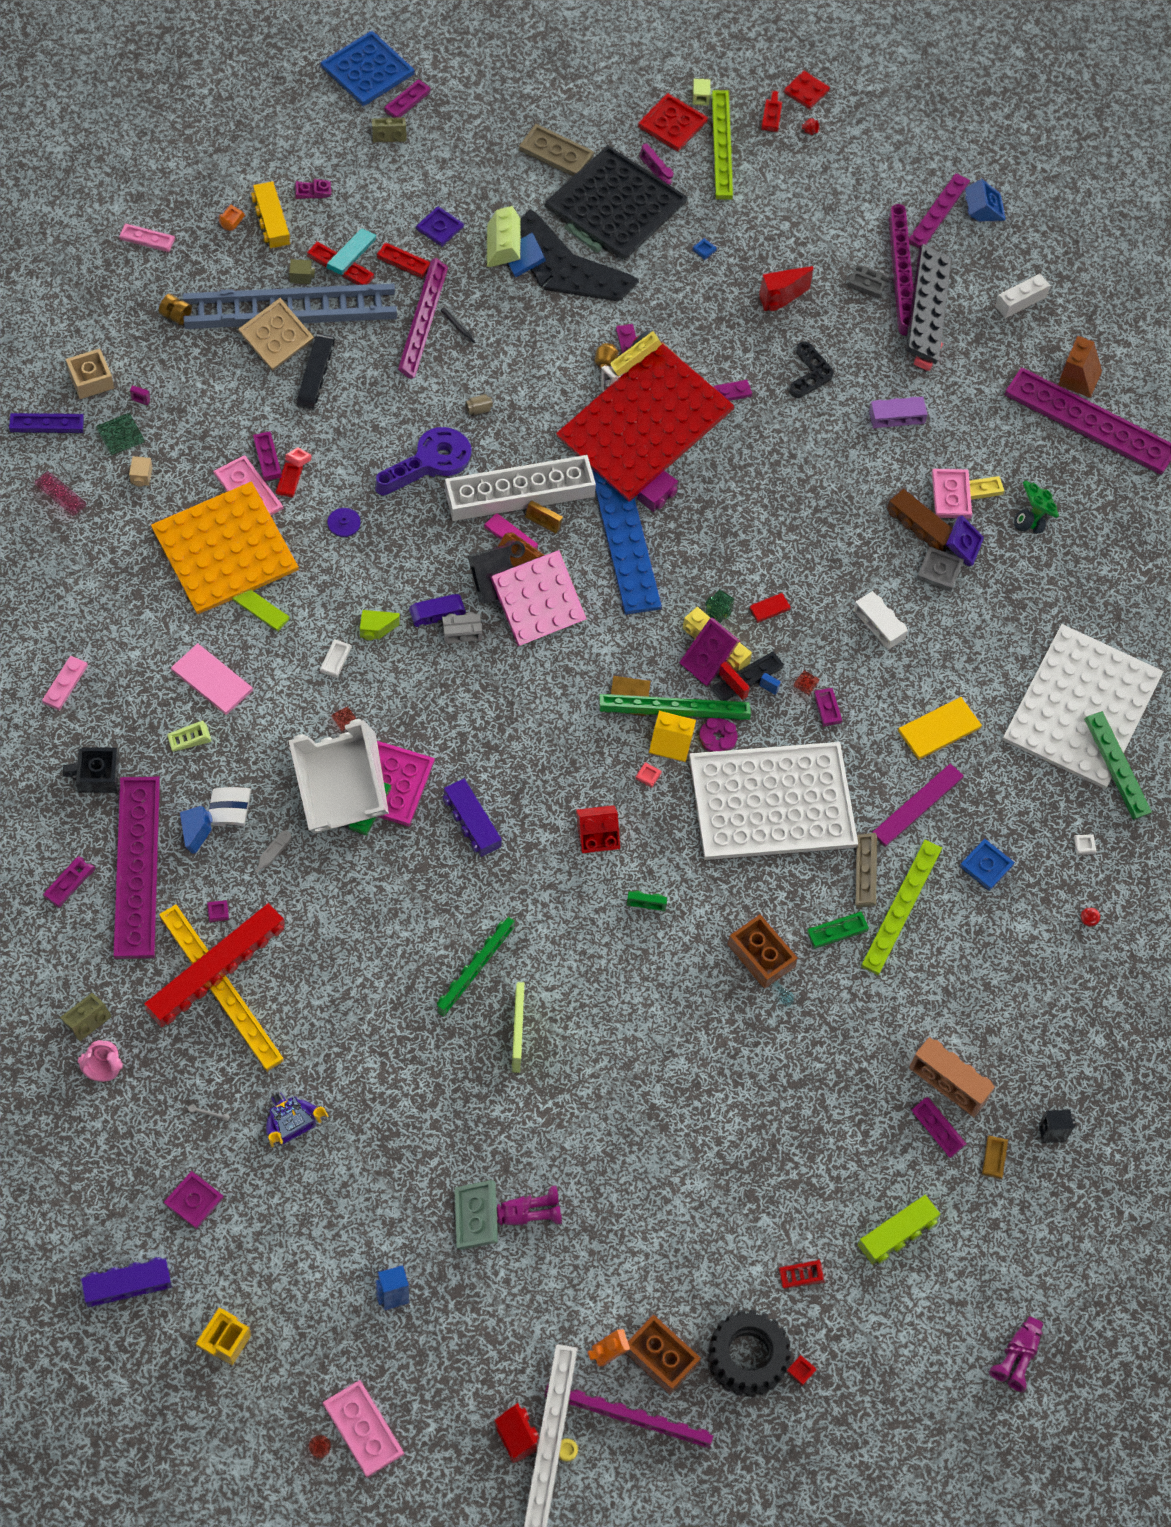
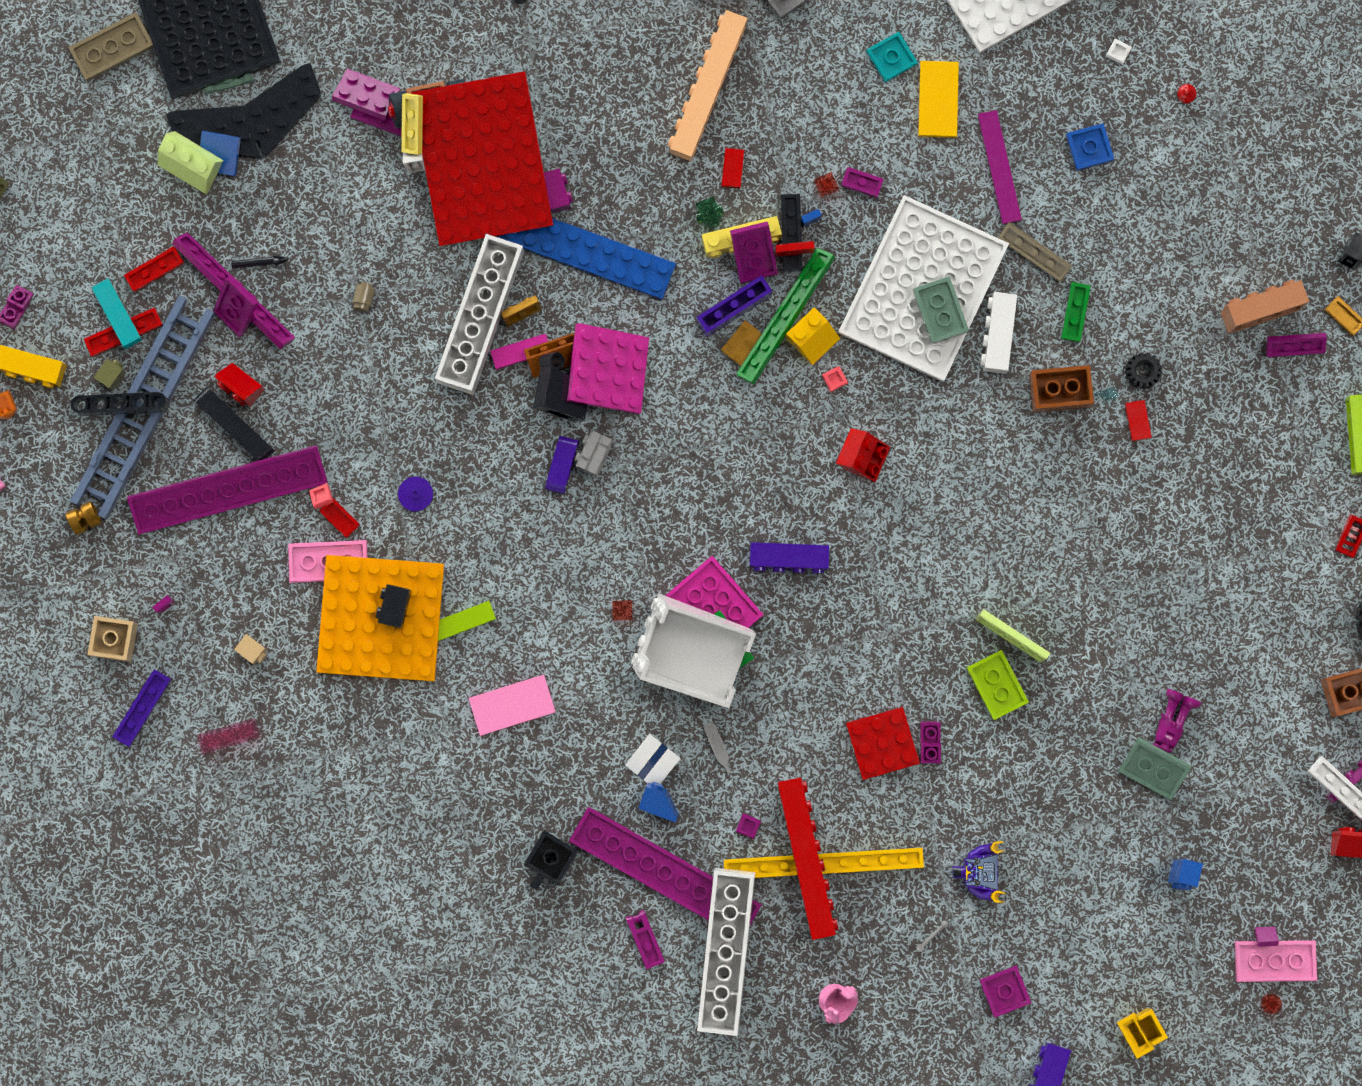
camera: 50 degrees left, 20 degrees up
(64, 683) = (438, 838): bright pink plate -> none
(86, 1016) = (784, 992): olive bracket -> none
(93, 943) = (726, 951): none -> white brick
(120, 433) = (194, 645): clear green tile -> none
(198, 740) = (566, 741): yellowish green slope -> none
(239, 545) = (393, 606): none -> black brick
(261, 391) = (227, 489): none -> magenta plate
(267, 456) = (303, 523): magenta plate -> none
(276, 334) = (172, 439): tan plate -> none
(280, 283) = (111, 401): none -> black beam
(335, 658) = (556, 583): white tile -> none
(349, 355) = (236, 381): none -> red slope
(357, 979) = (882, 743): none -> red plate
(377, 624) = (544, 528): lime slope -> none
(380, 1404) = (1266, 936): none -> magenta tile
(383, 1017) = (930, 741): none -> magenta slope
(410, 319) = (235, 306): none -> magenta plate
(427, 460) = (396, 378): dark purple beam -> none
(439, 226) = (133, 211): dark purple tile -> none
(468, 1043) = (997, 685): none -> lime plate
(469, 972) = (926, 629): green plate -> none
(605, 355) = (381, 147): pearl gold head -> none
(609, 1348) = (1329, 728): orange plate -> none
(638, 319) = (364, 94): none -> plate
(647, 901) = (949, 461): green plate -> none
(655, 663) = (734, 306): none -> dark purple brick
(715, 726) = (833, 306): magenta plate -> none
(735, 390) = (485, 54): magenta plate -> none
(762, 818) = (940, 310): none -> sand green plate
(776, 878) = (1000, 332): none -> white brick
(779, 1033) = (1138, 420): none -> red tile
(823, 553) = (708, 85): none -> light nougat brick
(826, 1001) = (1146, 359): none -> black tyre
(880, 620) = (805, 79): white brick -> none
(901, 907) = (1084, 244): lime plate -> none
(948, 675) = (892, 57): none -> teal tile

